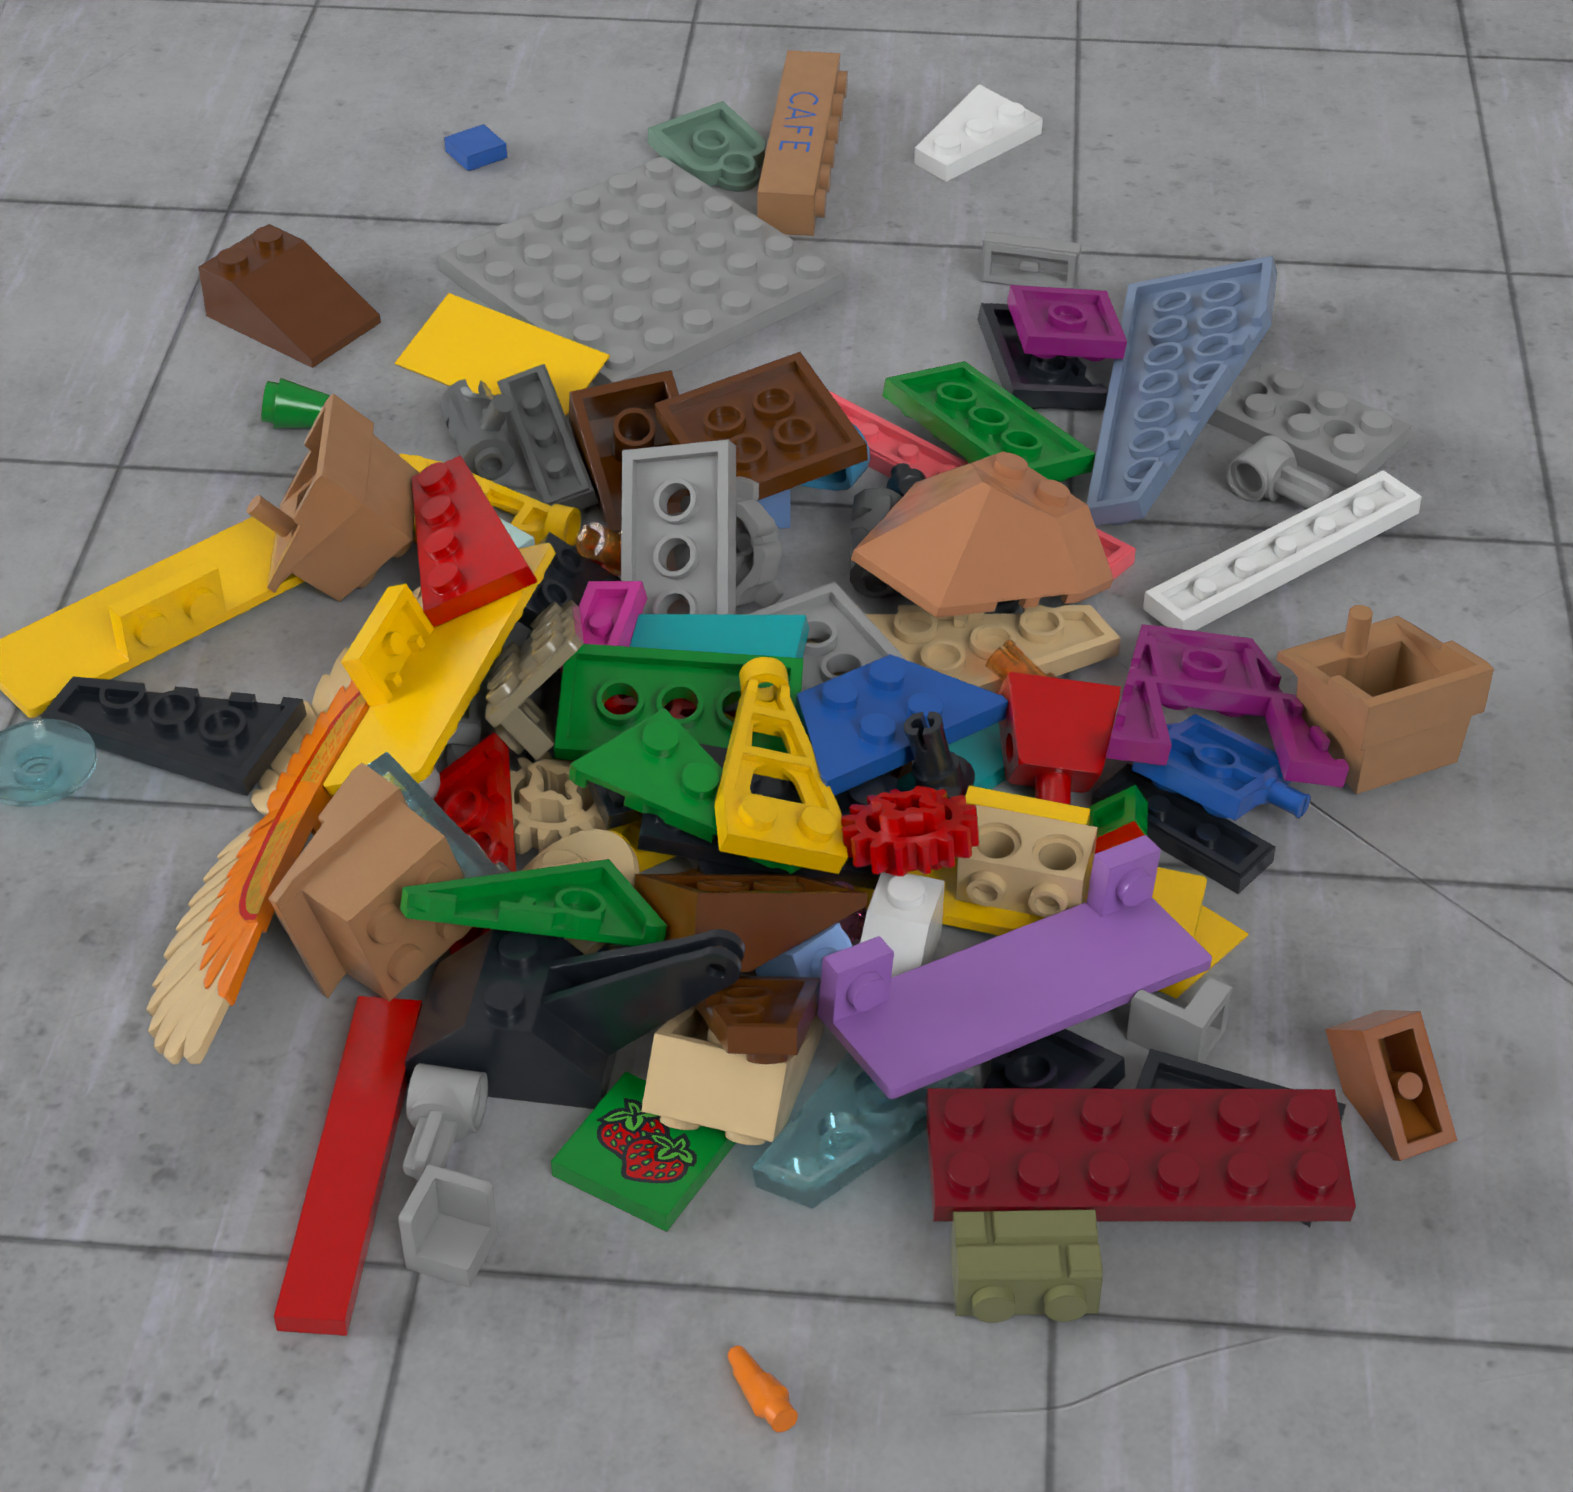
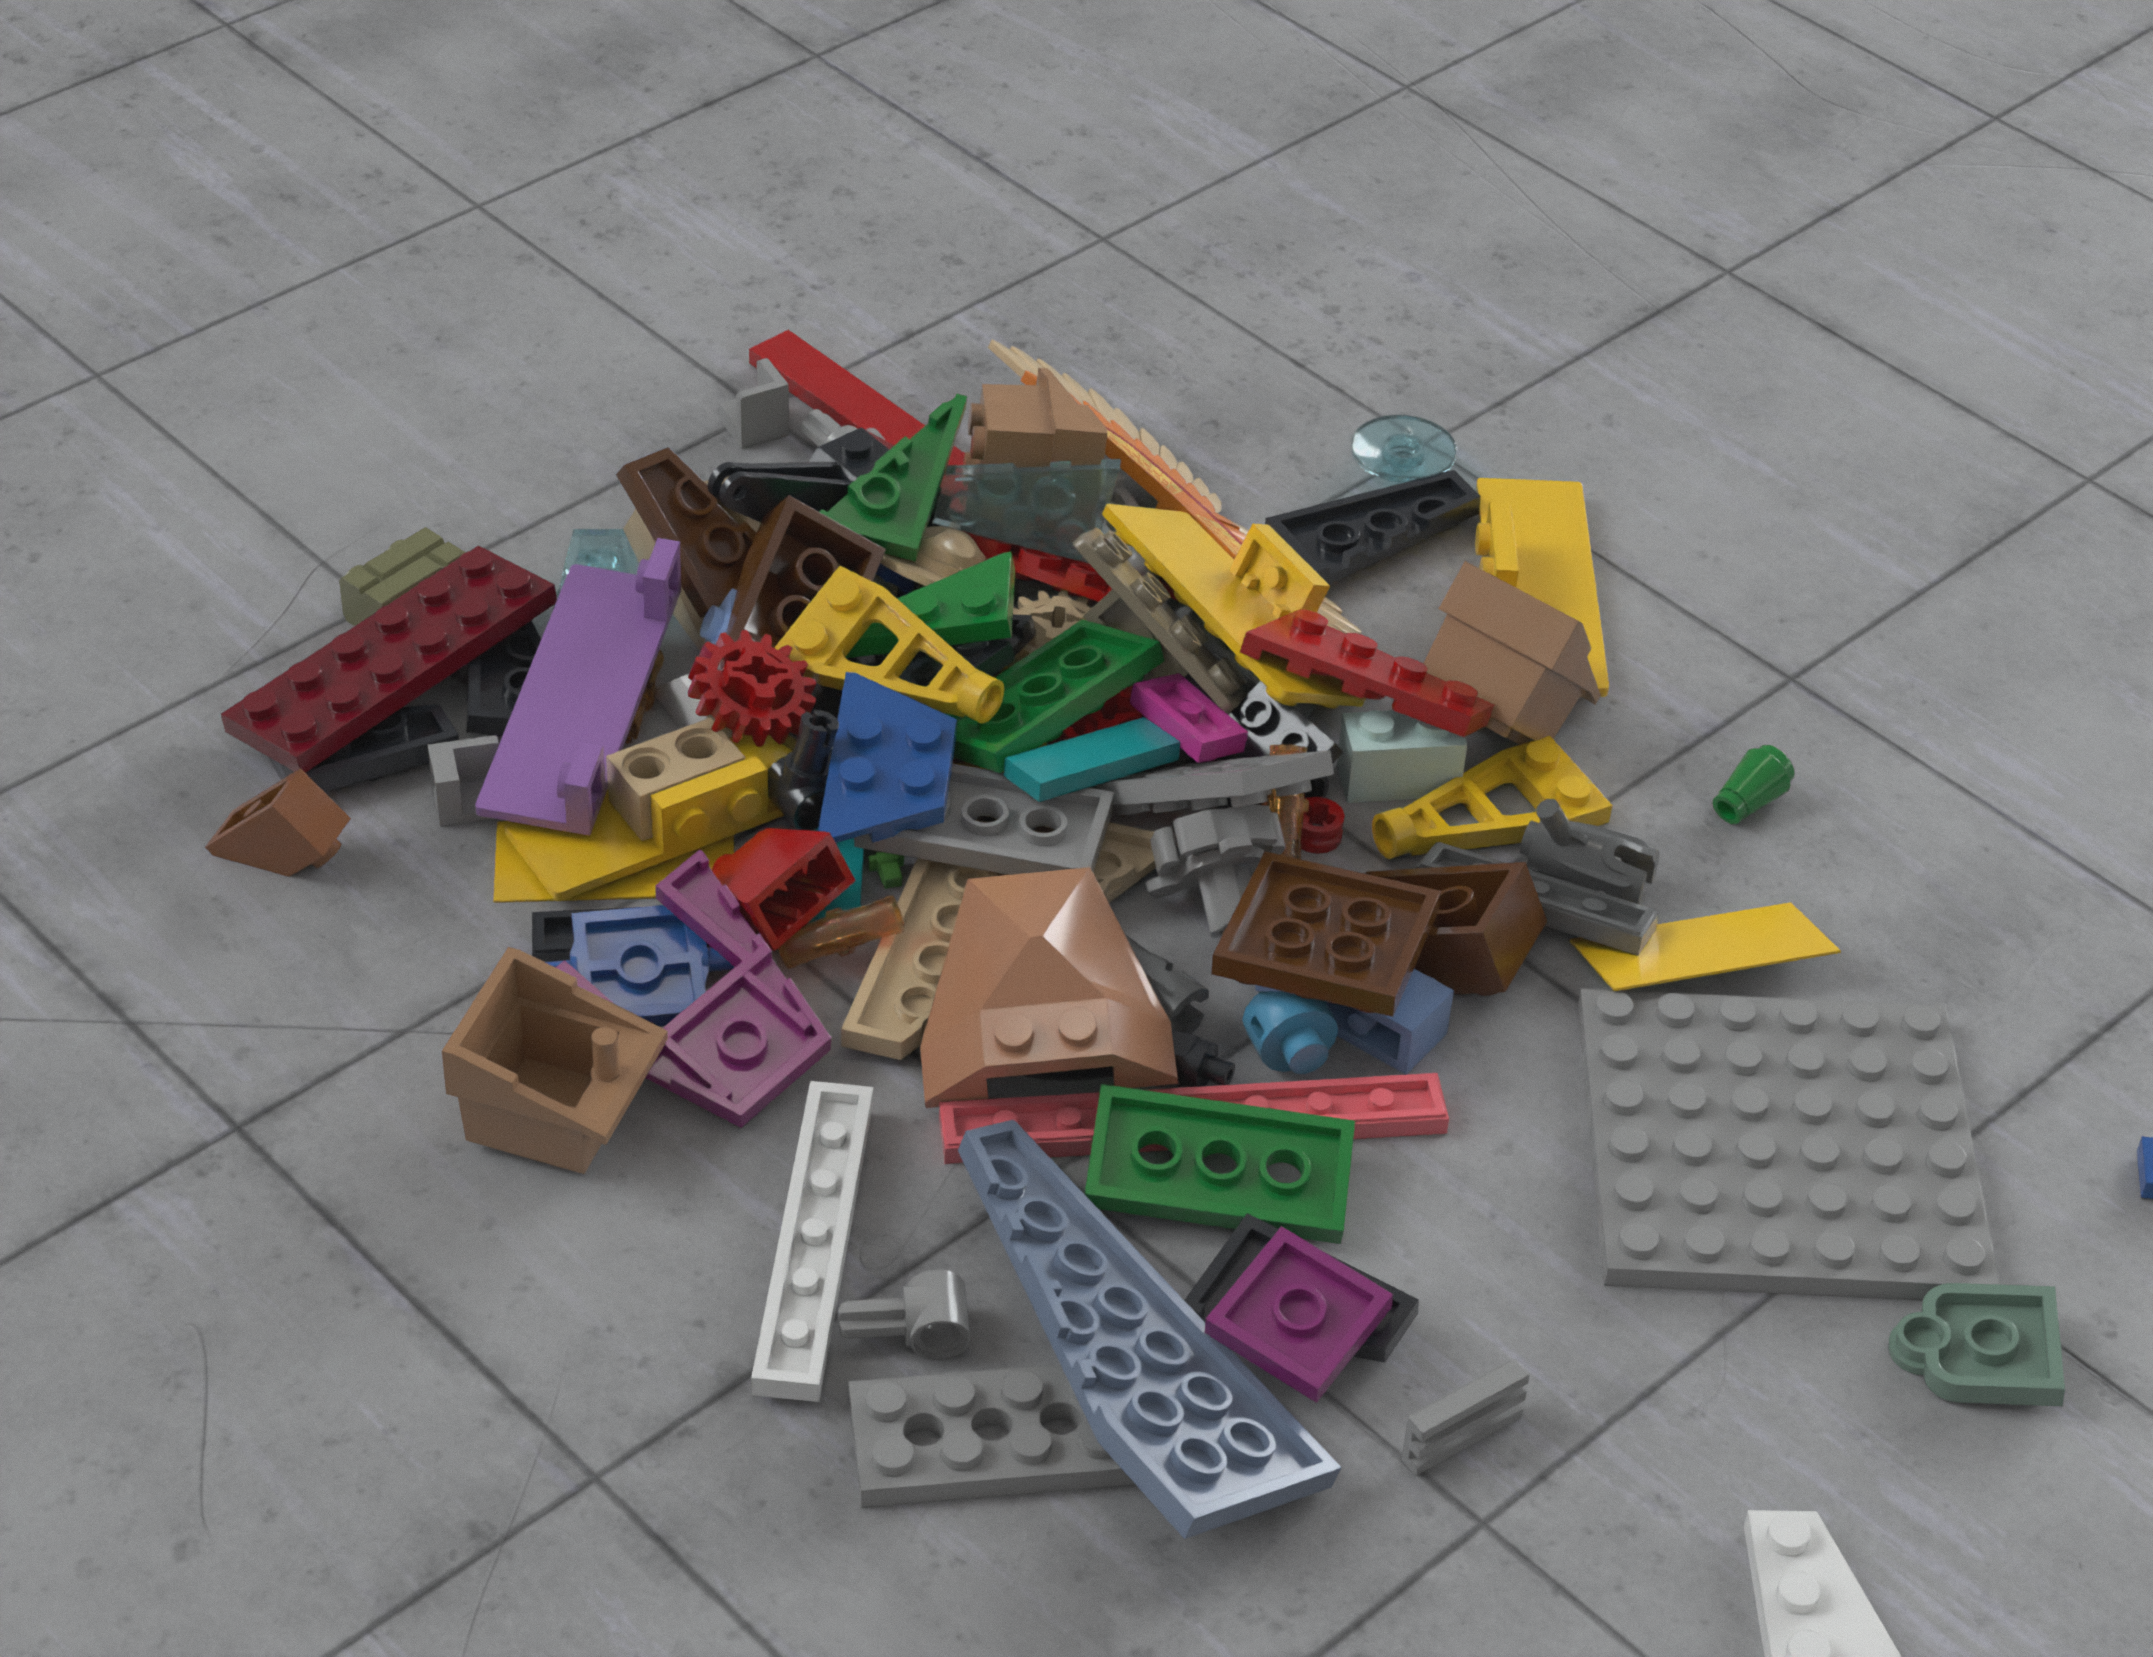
camera: 130 degrees right, 0 degrees up
(284, 296) = (1955, 865): reddish brown slope -> none
(762, 1390) = (489, 462): orange piece -> none
(802, 142) = (1926, 1416): medium nougat brick -> none
(1119, 818) = (649, 867): green plate -> none

